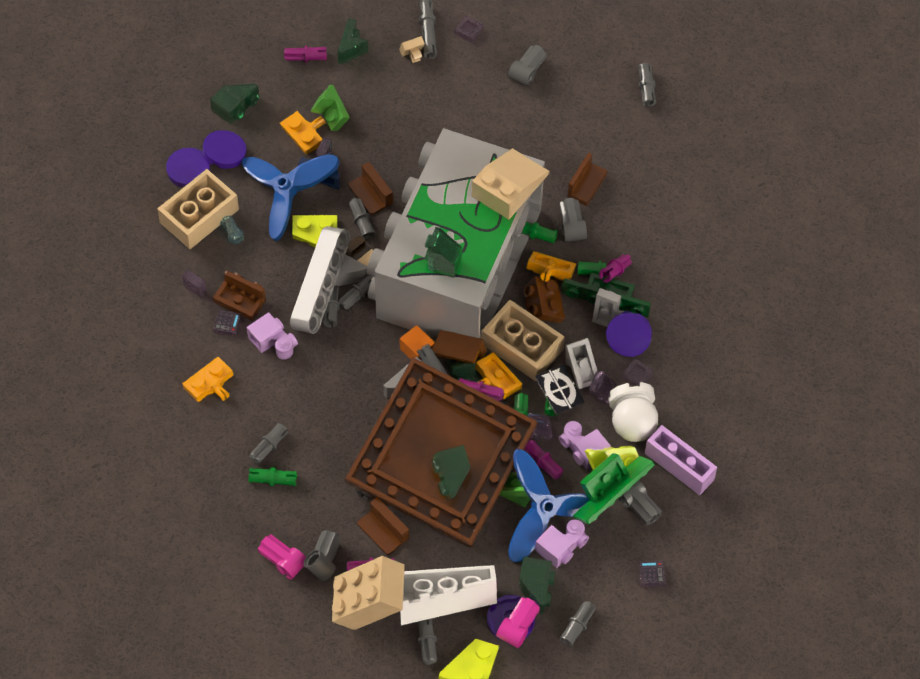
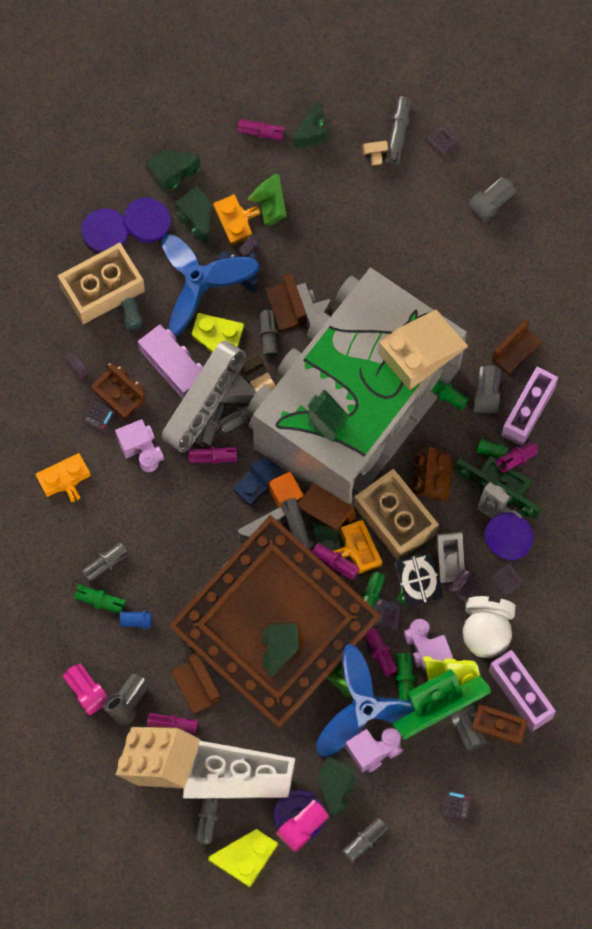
camera: 15 degrees right, 10 degrees up
(267, 133) = (196, 212): none -> clear green slope
(278, 259) = (170, 359): none -> lavender brick
(311, 485) = (136, 619): none -> blue pin
(341, 330) = (212, 455): none -> magenta axle
(387, 343) = (257, 480): none -> dark blue slope
(395, 186) = (311, 307): none -> light grey slope
(550, 266) = (450, 438): light orange plate -> none
(572, 475) = (405, 675): none -> green pin
(614, 223) = (529, 406): none -> lavender brick
(670, 492) = (499, 724): none -> reddish brown panel

